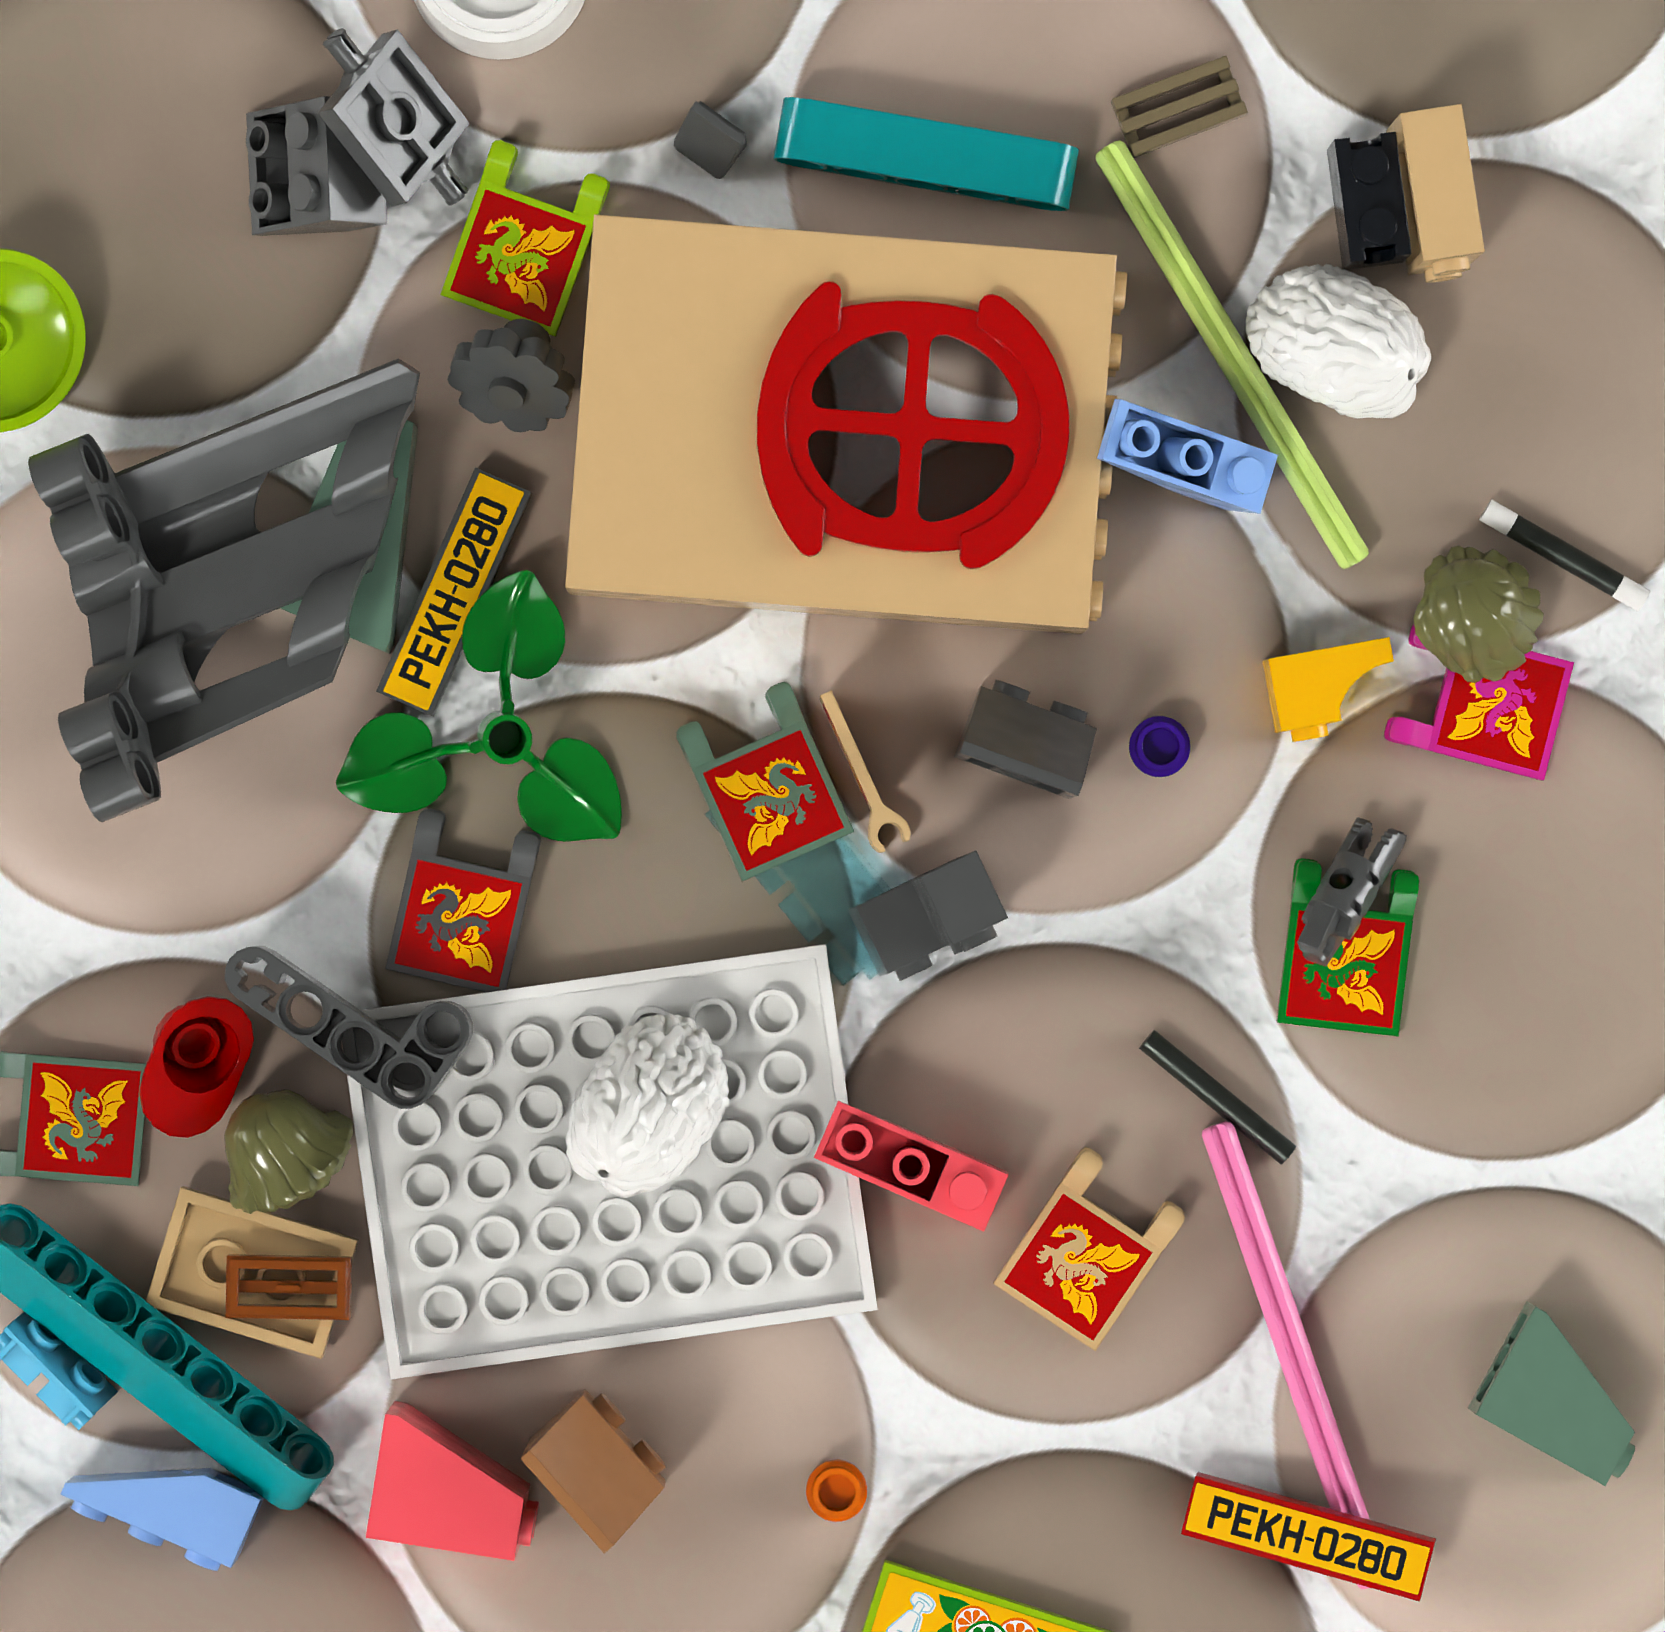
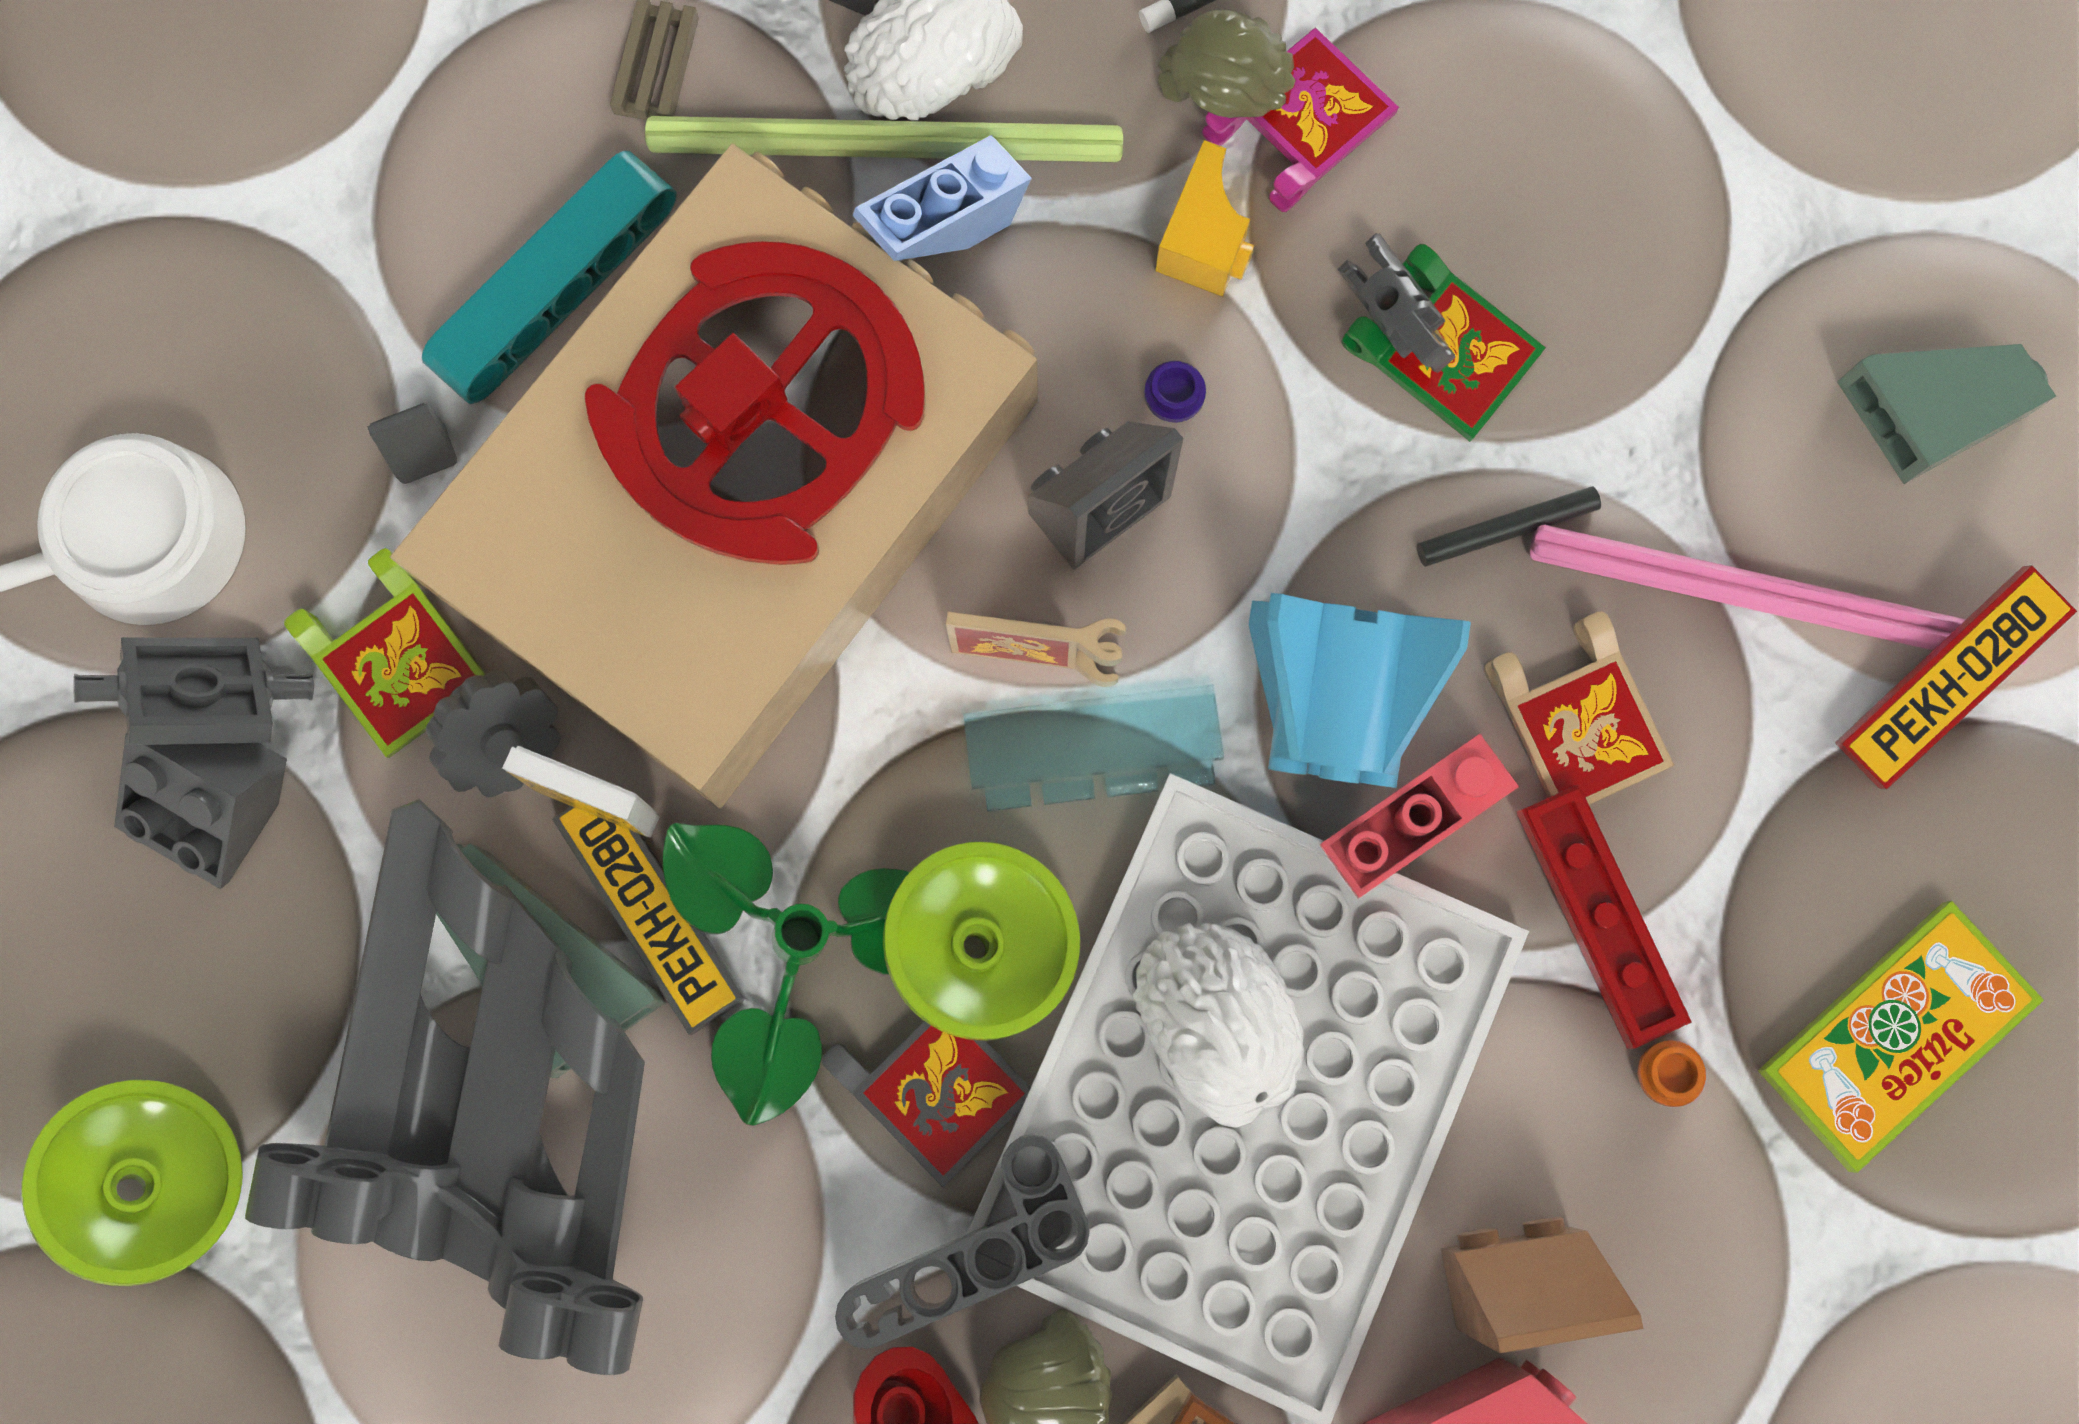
camera: 55 degrees left, 10 degrees down
(508, 490) = (581, 791): none -> white tile
(626, 906) = (1017, 915): none -> lime dish
(771, 794) = (1006, 740): flag -> none
(889, 407) = (729, 394): none -> red brick
(930, 1363) = (1603, 917): none -> red tile
(935, 910) = (1202, 644): dark grey brick -> none
(983, 1045) = (1349, 684): none -> medium azure brick

